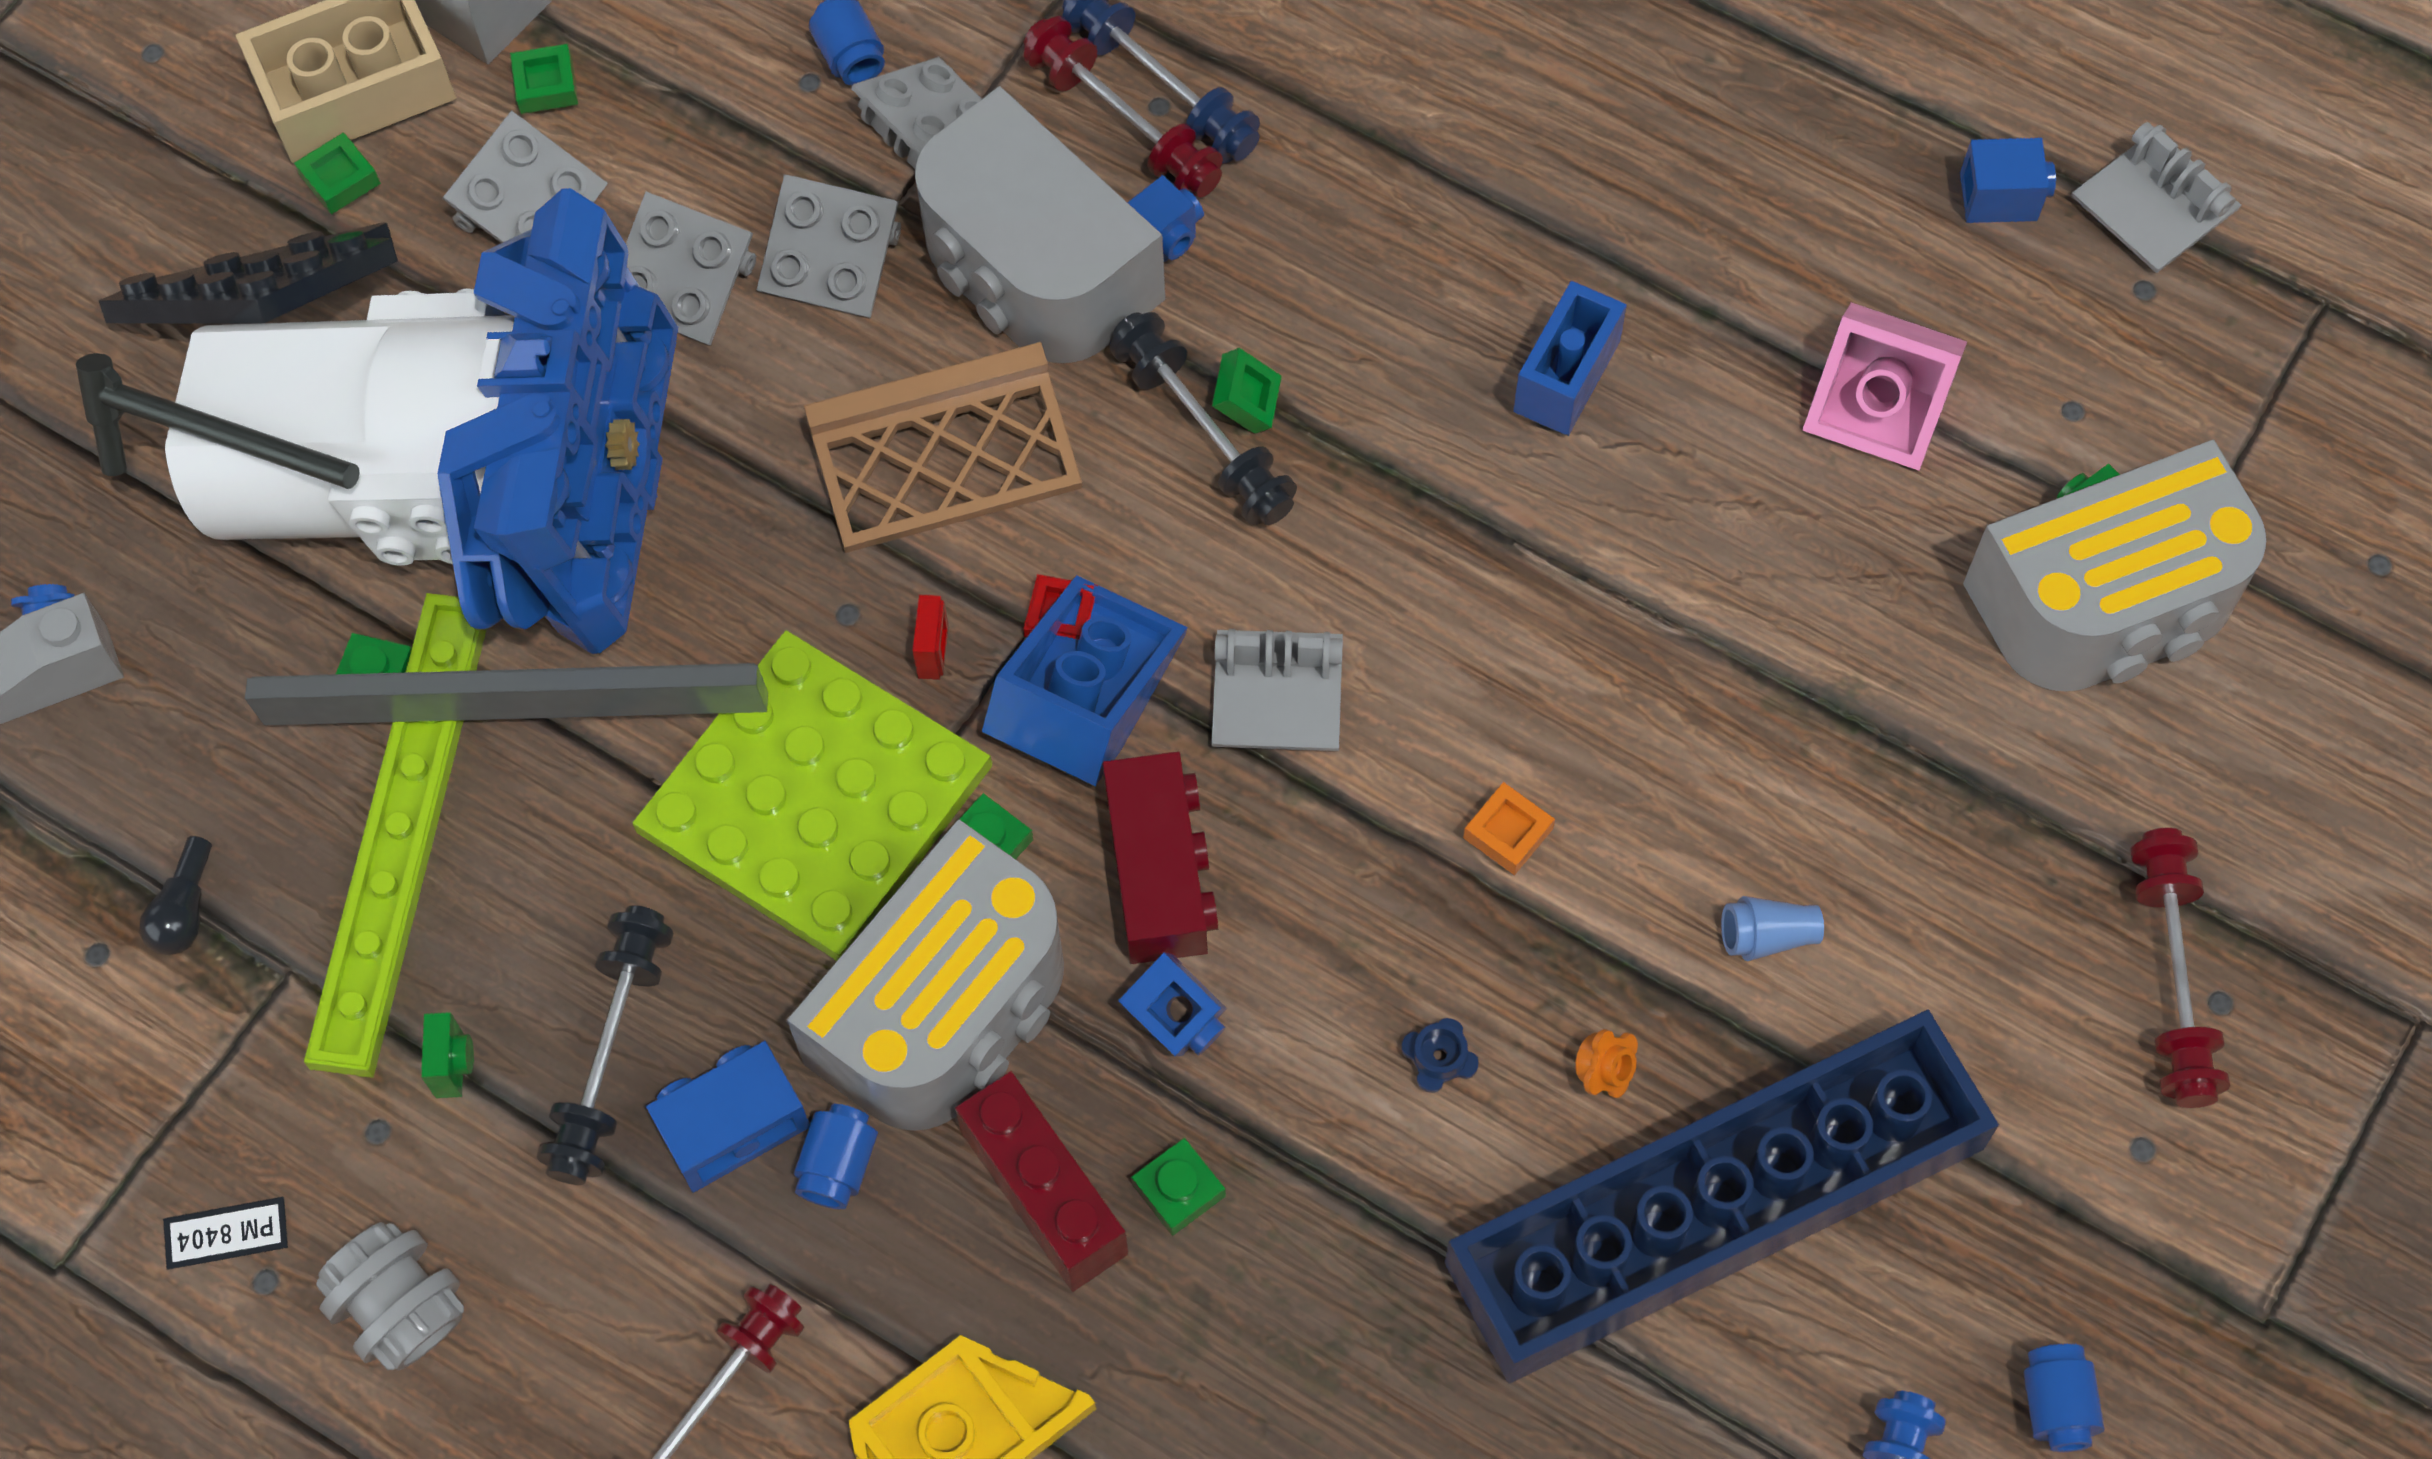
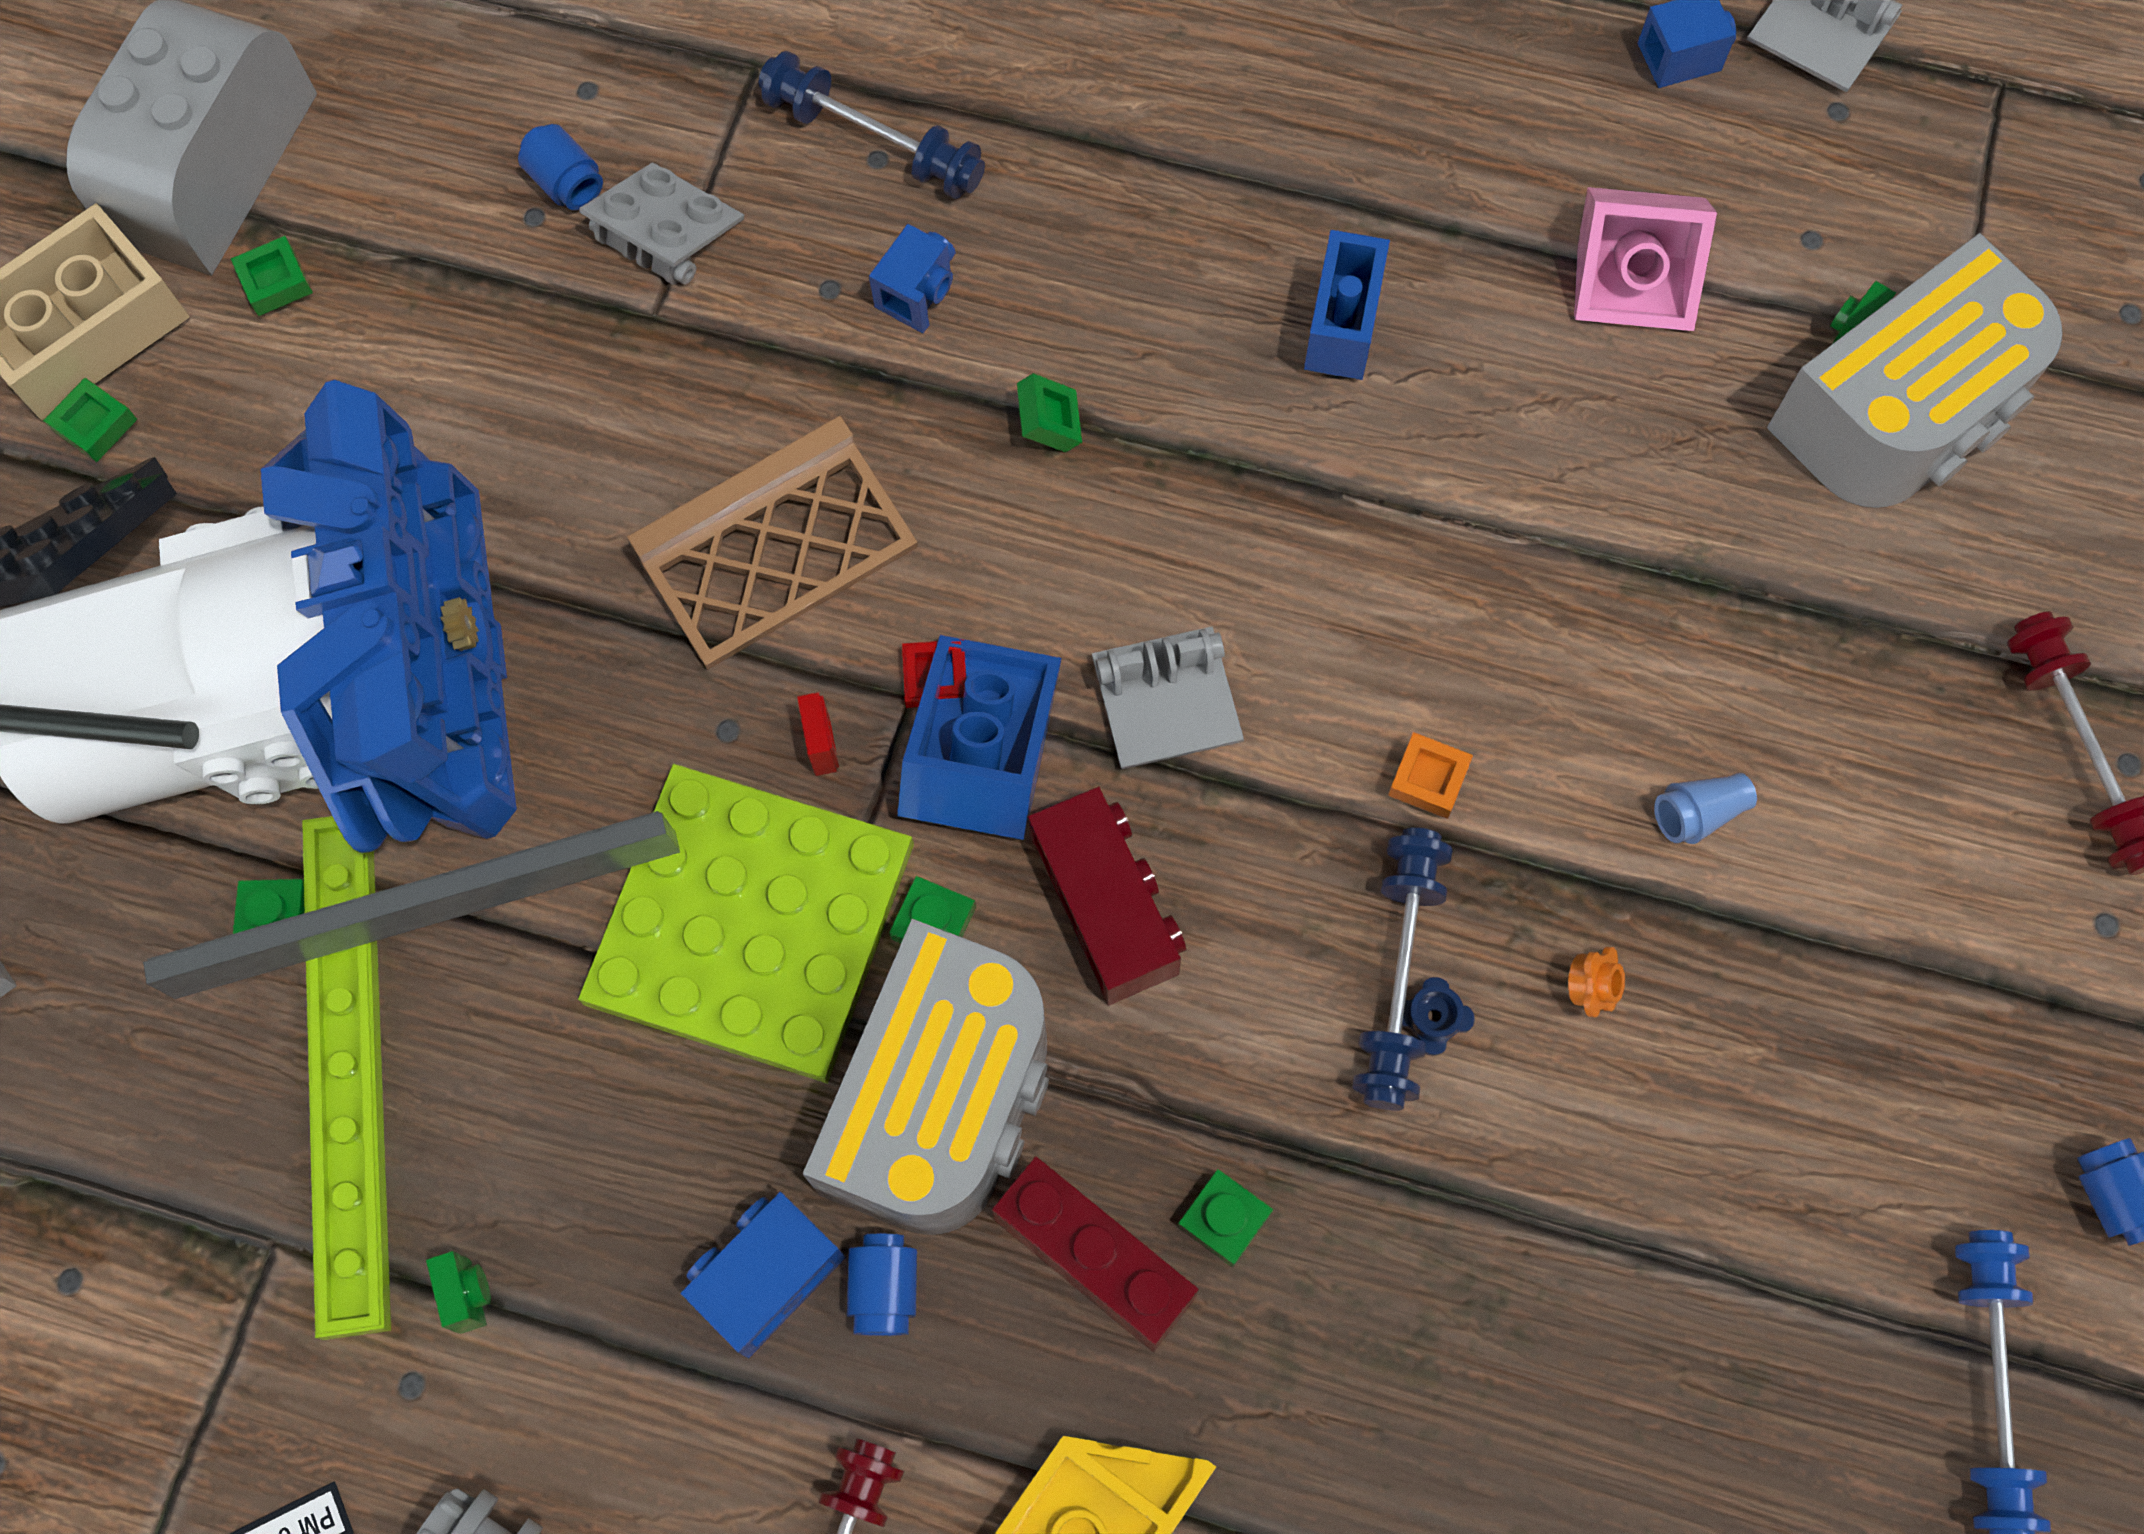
camera: 15 degrees left, 5 degrees up
(173, 917) = (137, 1223): black piece -> none
(514, 179) = (273, 384): light grey hinge -> none
(572, 1154) = (618, 1330): black axle -> none
(687, 262) = (468, 422): light grey hinge -> none
(828, 245) = (601, 371): light grey hinge -> none
(1033, 233) = (801, 309): light grey brick -> none
(1070, 63) = (783, 135): dark red axle -> none
(1151, 1000) = (1143, 1046): blue brick -> none
(1248, 474) = (955, 405): black axle -> none
(1385, 1073) = (1387, 1080): none -> dark blue axle
(1718, 1195) = (1748, 1089): dark blue brick -> none

